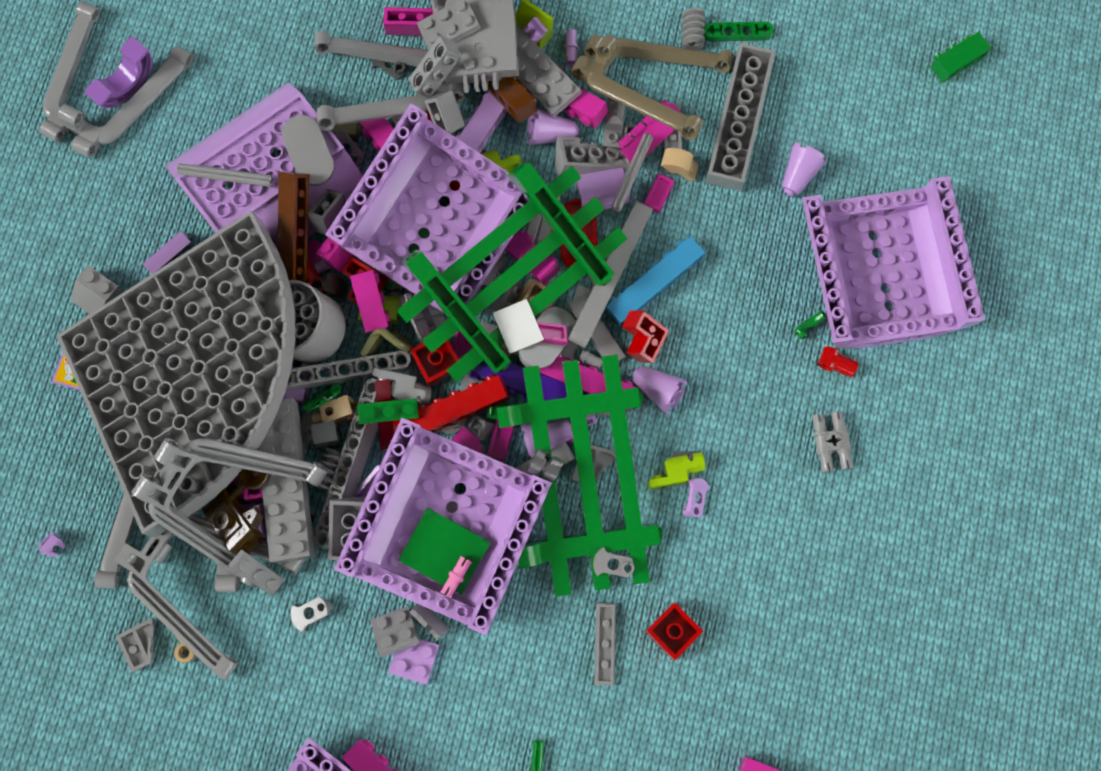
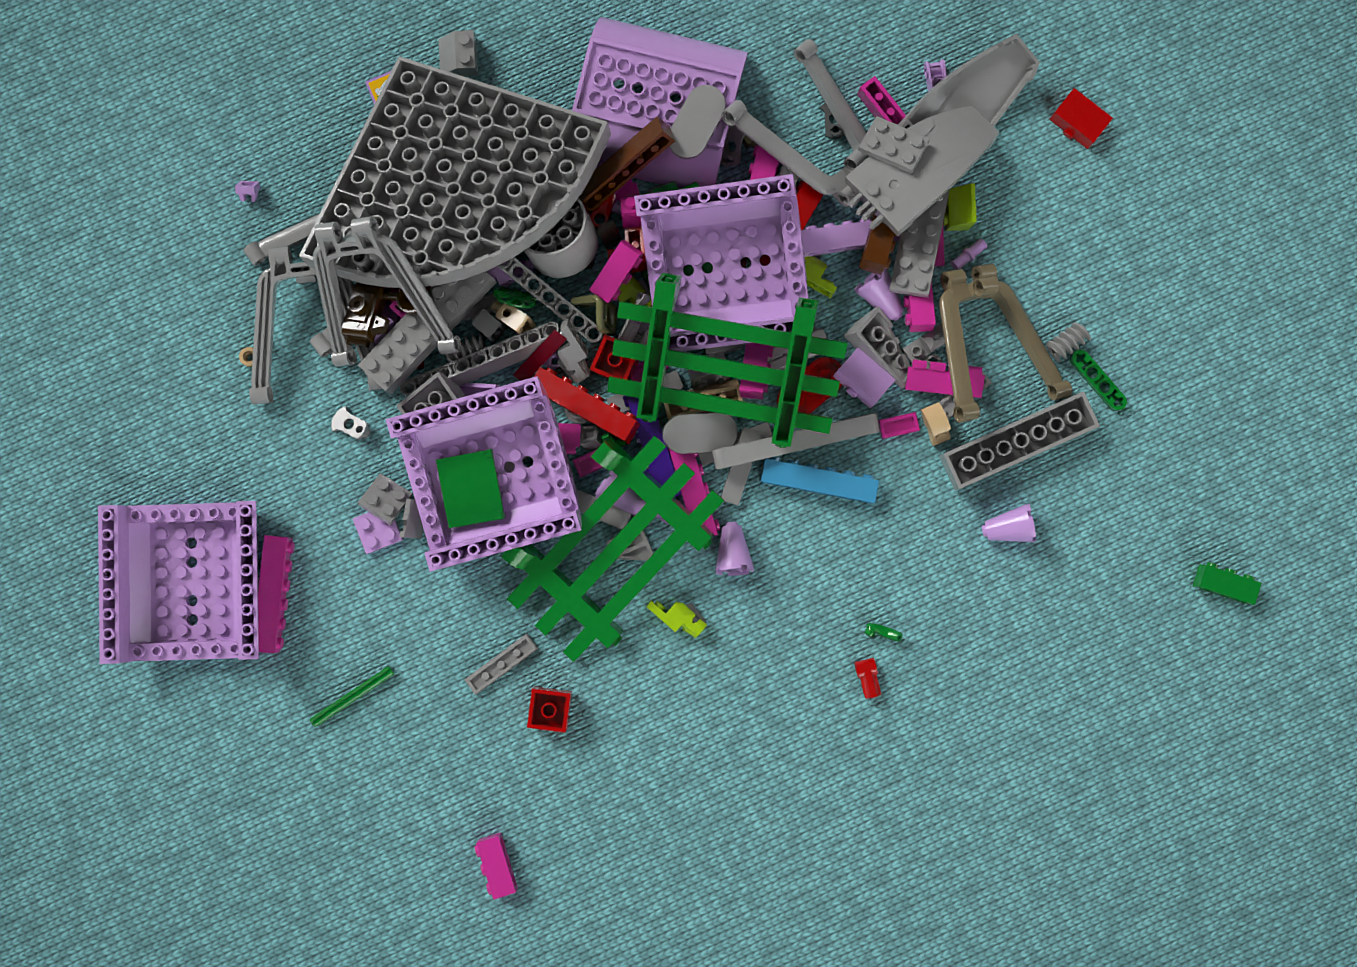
camera: 55 degrees right, 10 degrees up
(138, 645) = (228, 318): light grey wing -> none
(168, 252) = (531, 80): lavender container -> none
(224, 174) = (623, 74): light grey axle -> none
(256, 572) = (344, 361): light grey plate -> none
(326, 211) = (661, 178): dark grey brick -> none
(387, 411) = (541, 358): green plate -> none
(435, 67) = (848, 163): light grey brick -> none
(445, 111) = (819, 202): light grey brick -> none
(456, 577) = (457, 513): bright pink pin -> none
(518, 326) = (688, 404): white sticker -> none
(535, 30) = (954, 214): lavender tile -> none
(544, 465) = (592, 514): flat silver wheel -> none
(553, 333) = (704, 431): dark pink tile -> none
(590, 359) = (714, 480): light grey pin -> none
(601, 560) = (563, 612): light grey piece -> none
(632, 172) = (894, 391): light grey axle -> none
(647, 334) = (766, 511): red brick -> none
(698, 486) = (677, 641): lavender piece -> none
(825, 449) = (787, 720): light grey pin -> none
(920, 262) = (1005, 683): lavender slope -> none

